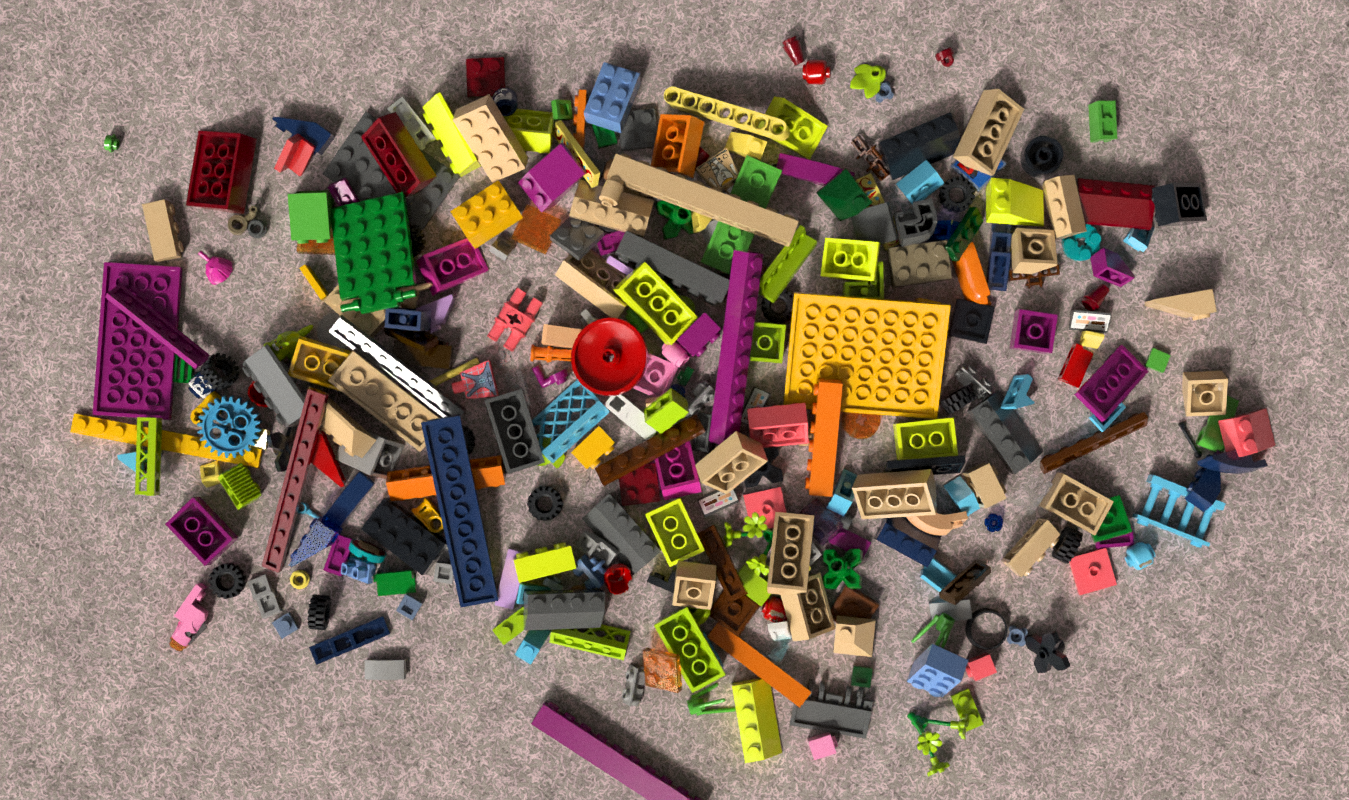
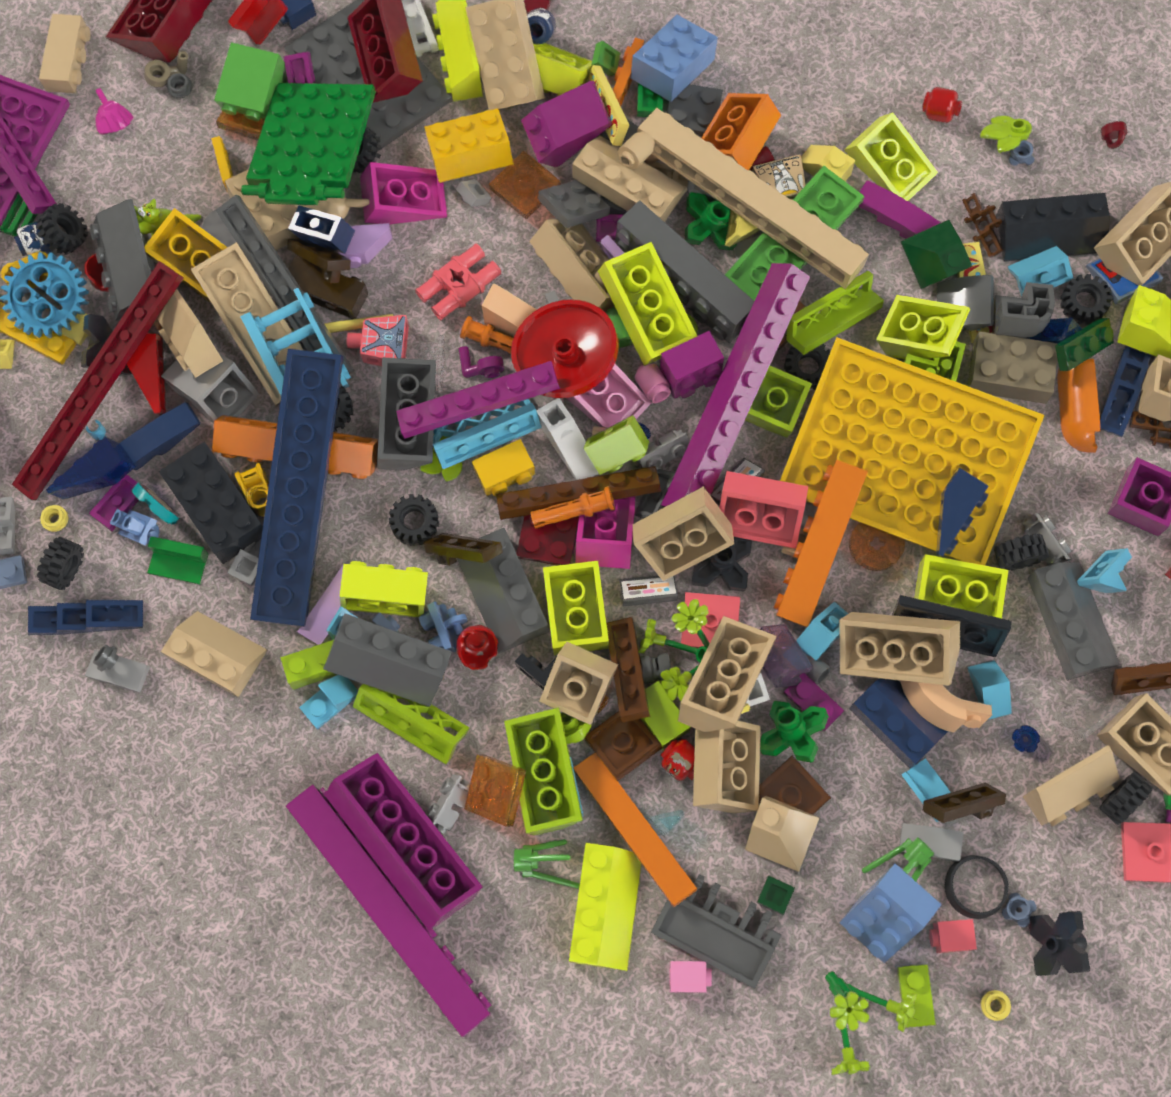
camera: 15 degrees right, 15 degrees down
(240, 486) = (27, 375): lime brick -> none
(376, 666) = (106, 657): none -> dark grey plate
(404, 420) = (270, 349): none -> medium azure fence
(409, 606) = (182, 598): sand blue plate -> none
(445, 636) = (214, 652): none -> tan slope
(505, 359) = (426, 327): clear hand -> none
(562, 414) = (477, 399): none -> magenta plate
(586, 517) = (450, 546): none -> dark brown hinge
(593, 545) = (460, 595): light grey slope -> none
(615, 722) = (403, 841): none -> magenta brick
(658, 461) = (585, 505): none -> orange pin
(684, 375) = (655, 413): dark green plate -> none
(732, 119) = (818, 113): light yellow beam -> none
(735, 555) = (649, 667): none -> dark grey wheel
(779, 631) = (678, 787): white plate -> none
(794, 50) = (920, 73): dark red cone -> none
(908, 381) = (956, 505): none -> dark blue slope
(971, 321) = (1064, 462): black plate -> none
(985, 484) = (1029, 675): tan brick -> none
(1021, 704) = (1005, 1005): none -> light yellow plate

